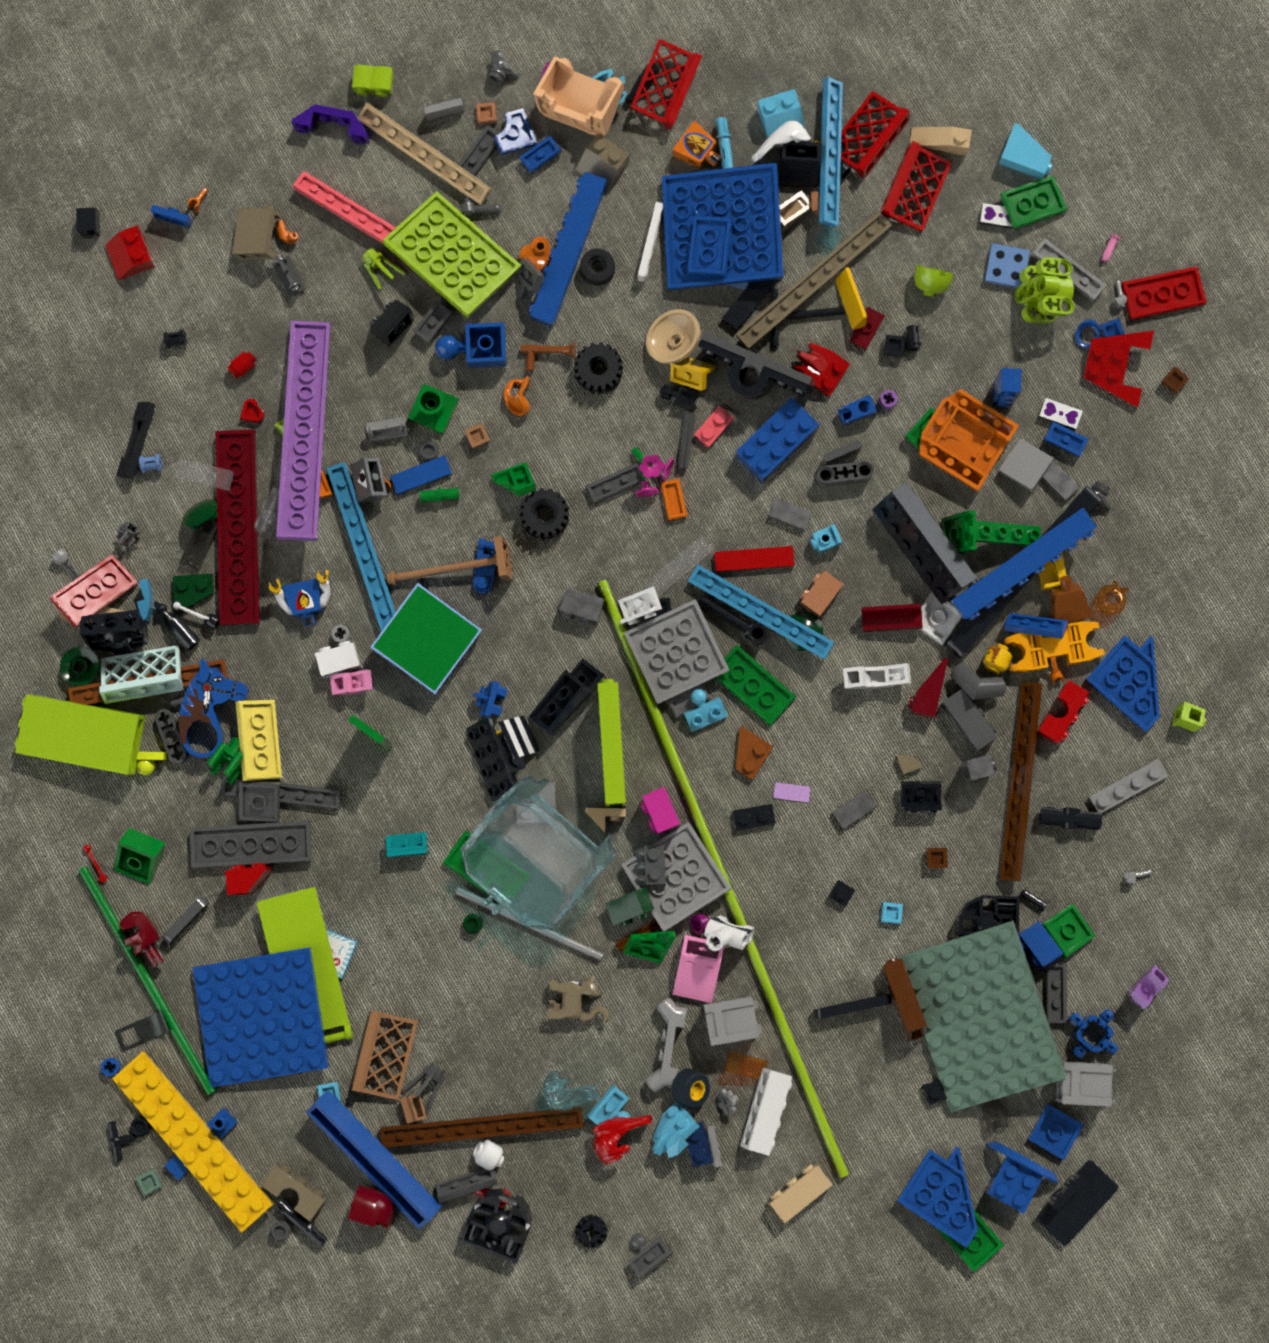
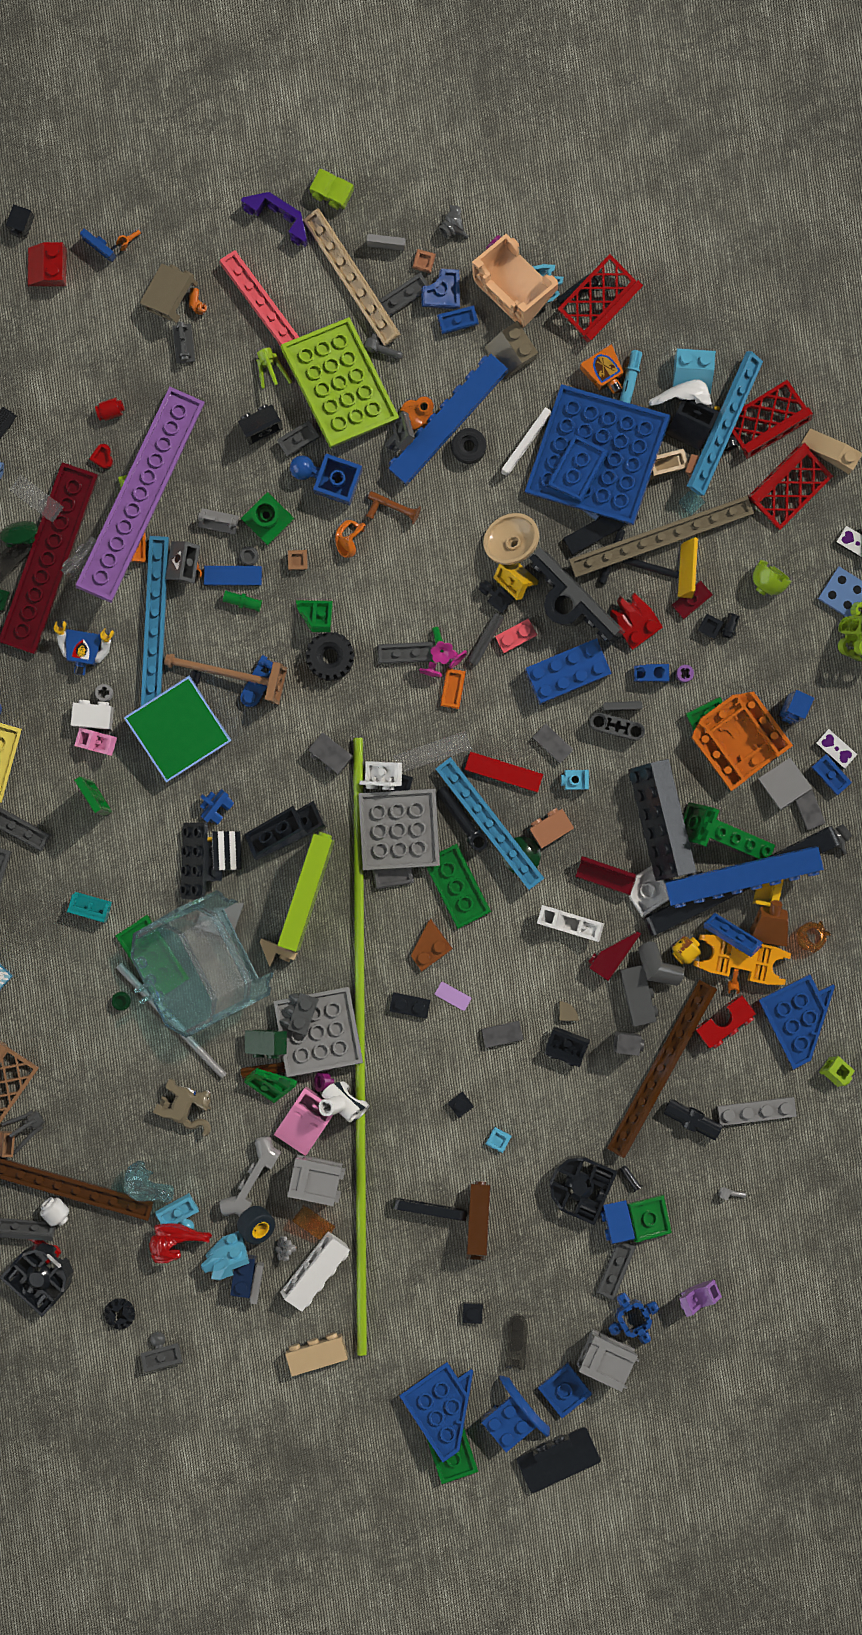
camera: 20 degrees right, 5 degrees up
(175, 339) = (58, 361): black bush -> none
(595, 382) = (417, 540): black tyre -> none
(660, 811) = (326, 968): dark pink brick -> none
(704, 713) = (403, 894): medium azure plate -> none
(936, 857) = (558, 1107): reddish brown plate -> none
(983, 1017) = (541, 1266): sand green plate -> none

